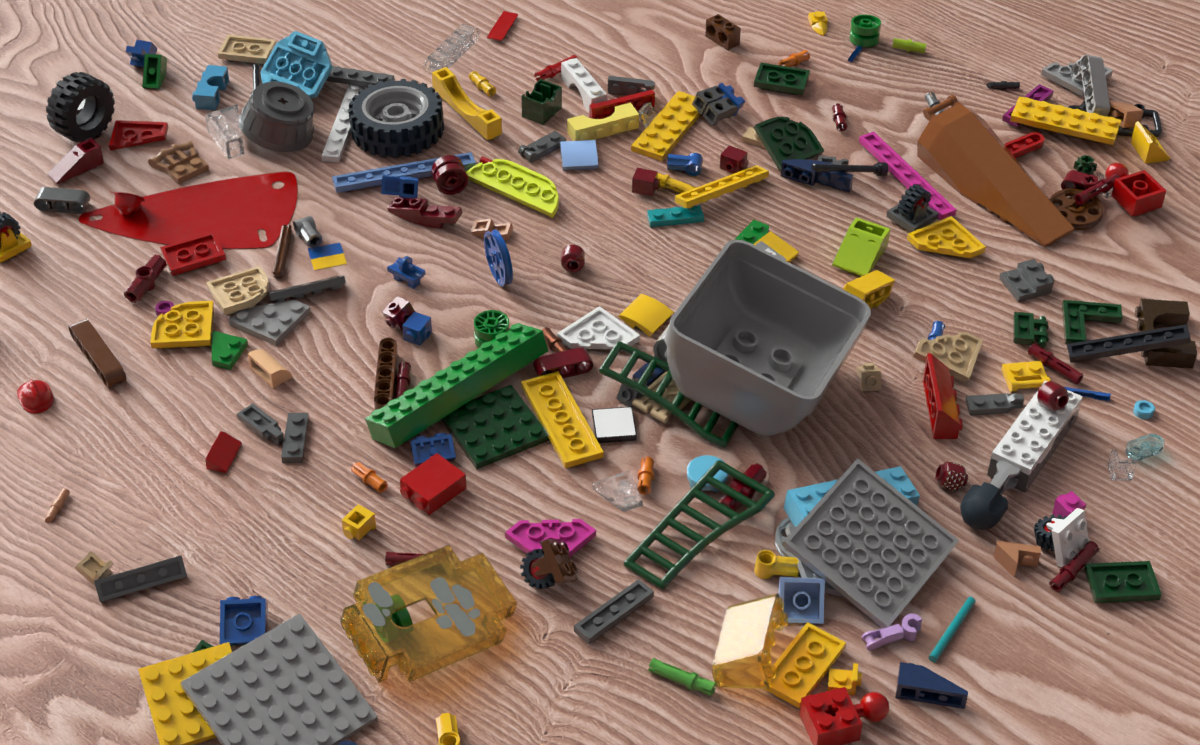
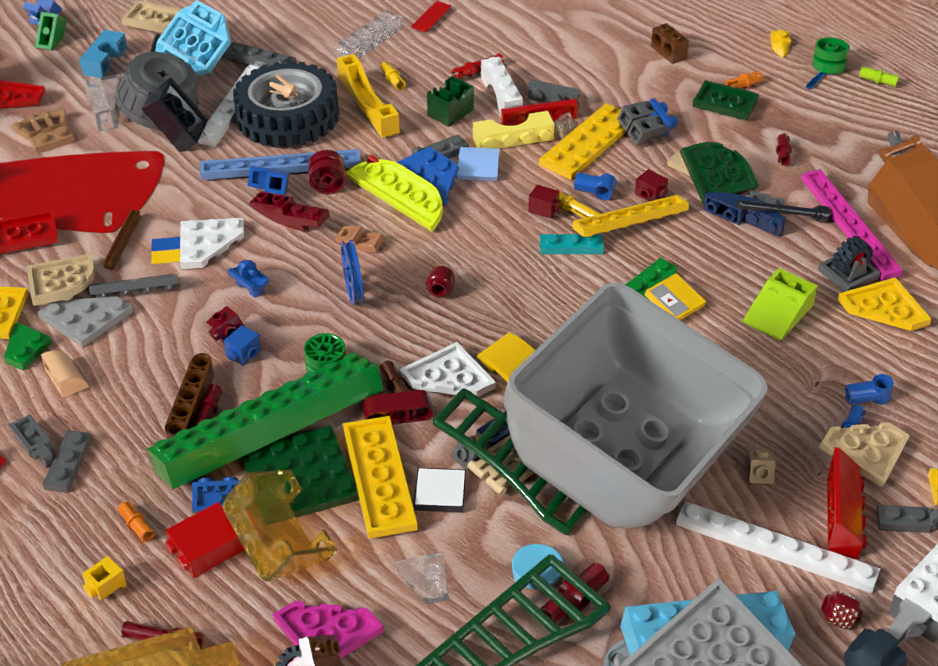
camera: 10 degrees right, 0 degrees up
(301, 137) = (175, 115): none -> black slope
(307, 230) = (156, 219): flat silver piece -> none
(358, 243) = (207, 238): none -> white plate
(398, 106) = (288, 90): none -> light nougat piece
(483, 469) = (269, 528): none -> clear yellow windscreen
(543, 162) = (434, 169): none -> blue wing
(645, 475) = (461, 560): orange pin -> none
(871, 288) = (779, 358): yellow wedge -> none
(893, 436) = (778, 547): none -> white plate
(947, 309) = (877, 390): none -> blue piece

